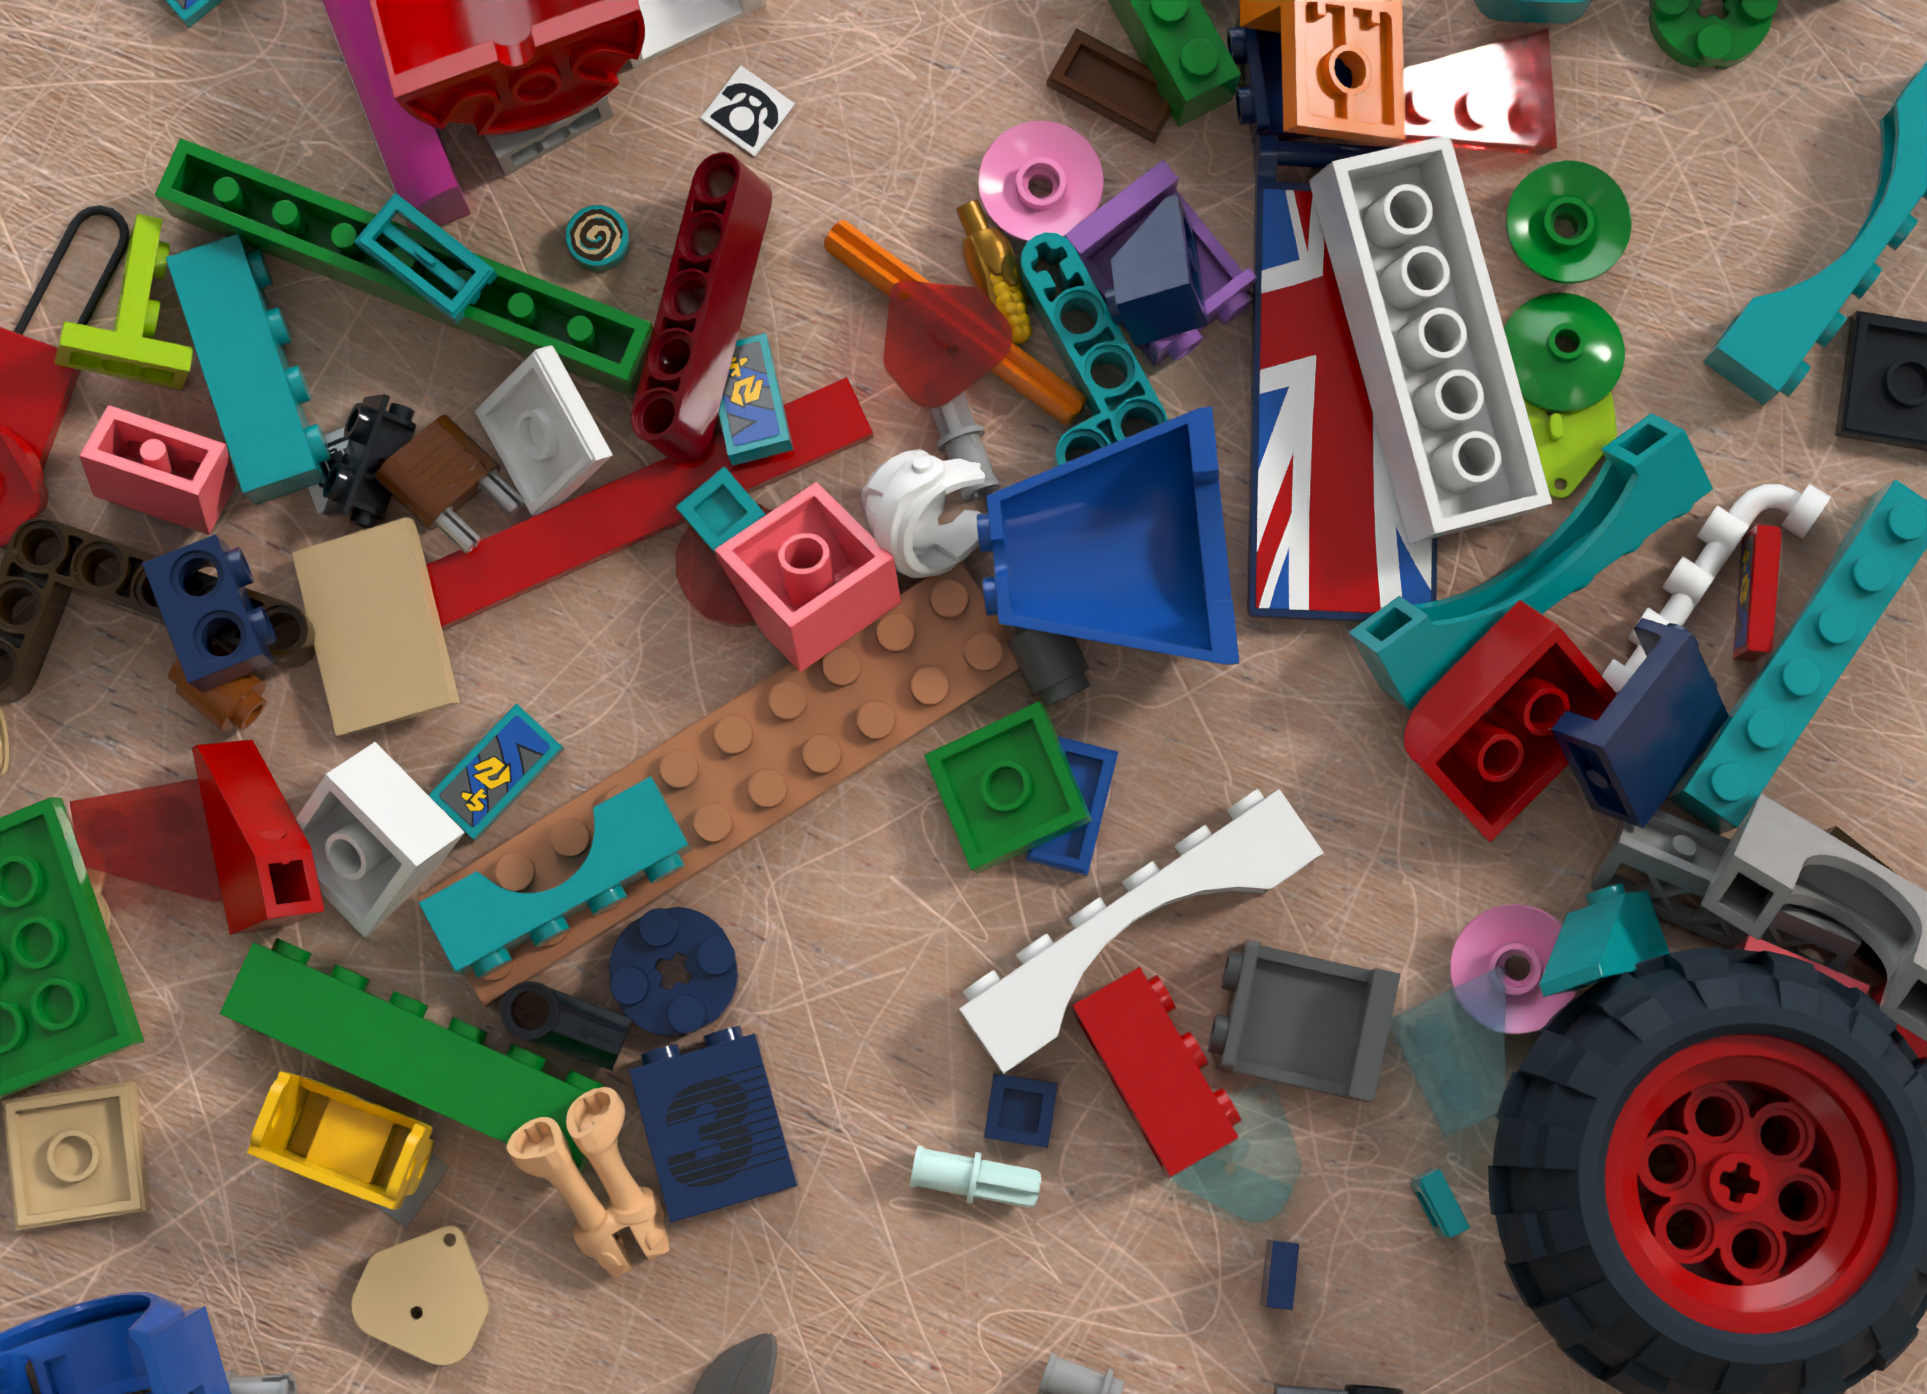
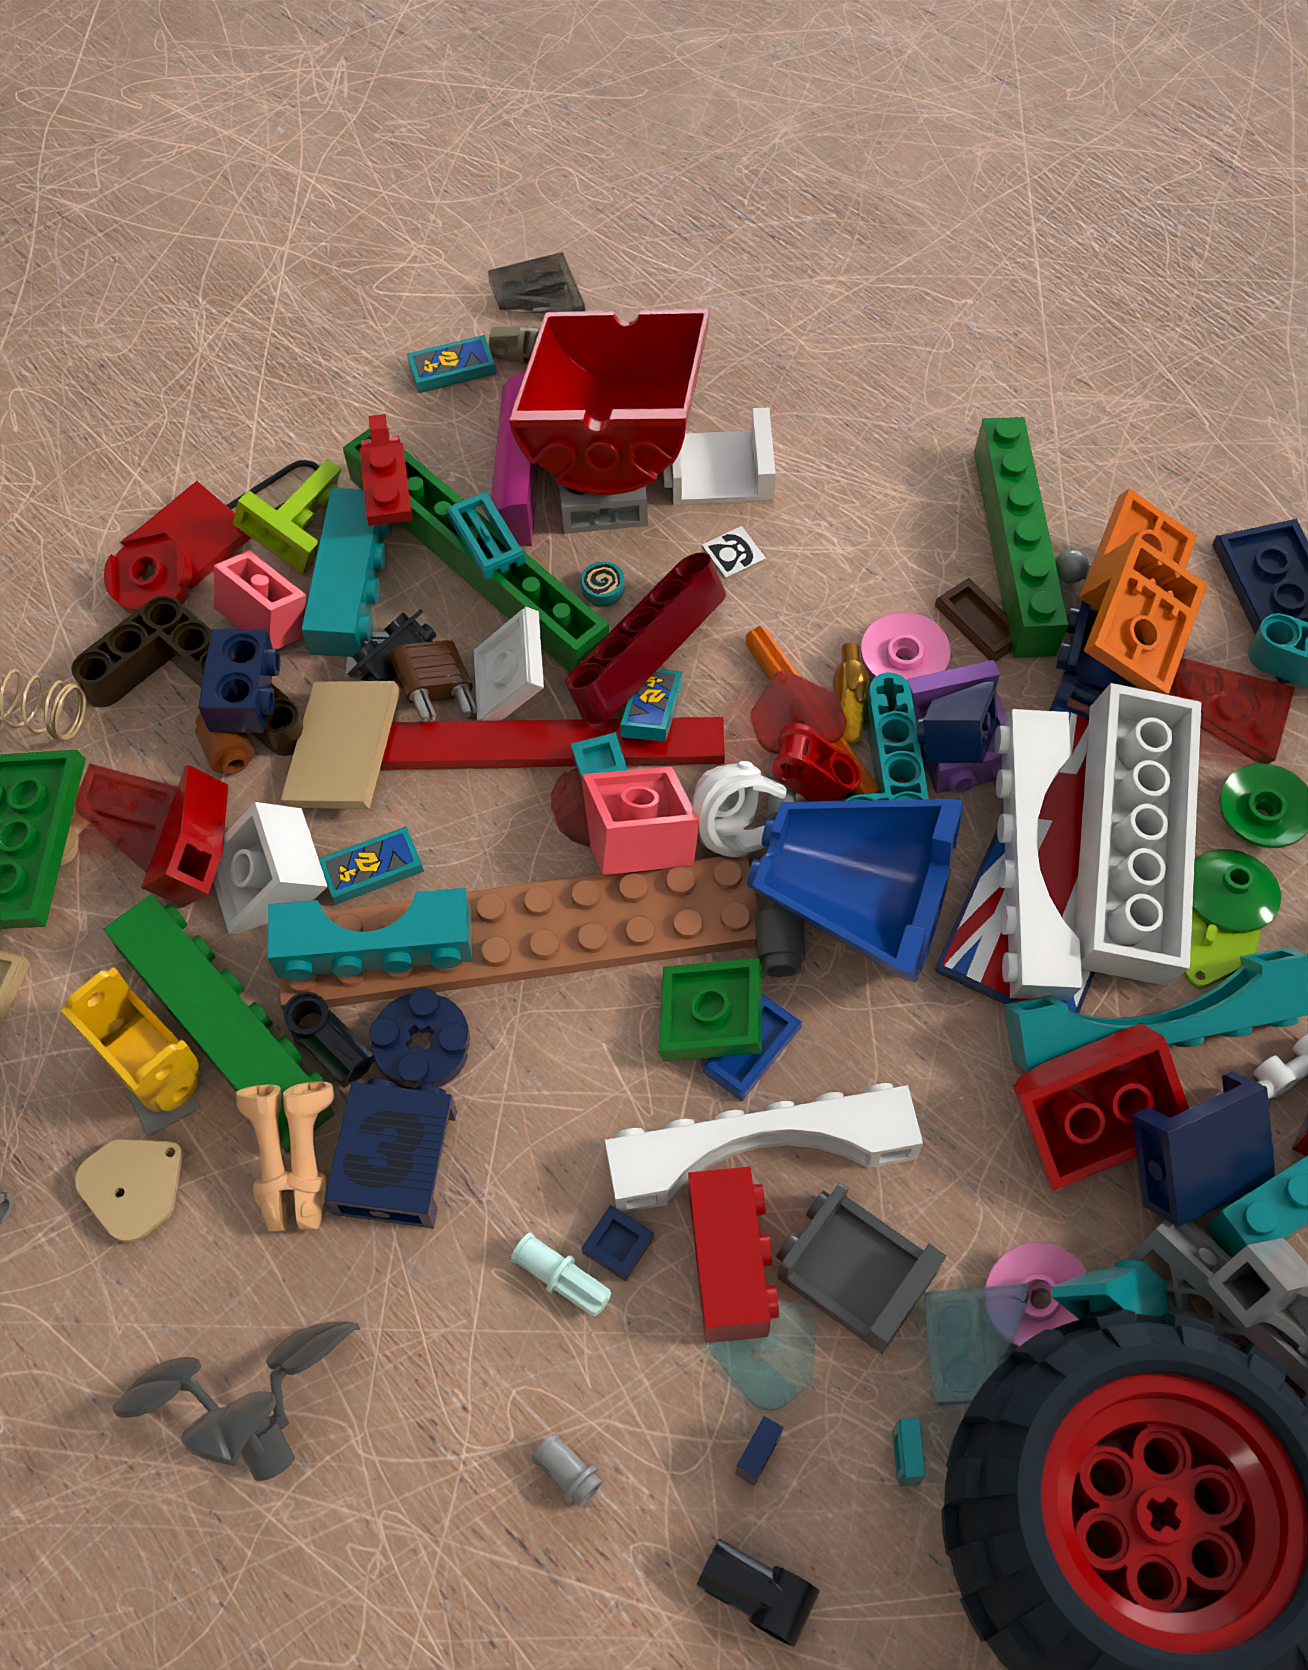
camera: 30 degrees right, 20 degrees down
(241, 222) = (384, 475): none -> red hinge
(999, 410) = (814, 771): none -> red piece
(1269, 296) = (1041, 946): none -> white arch

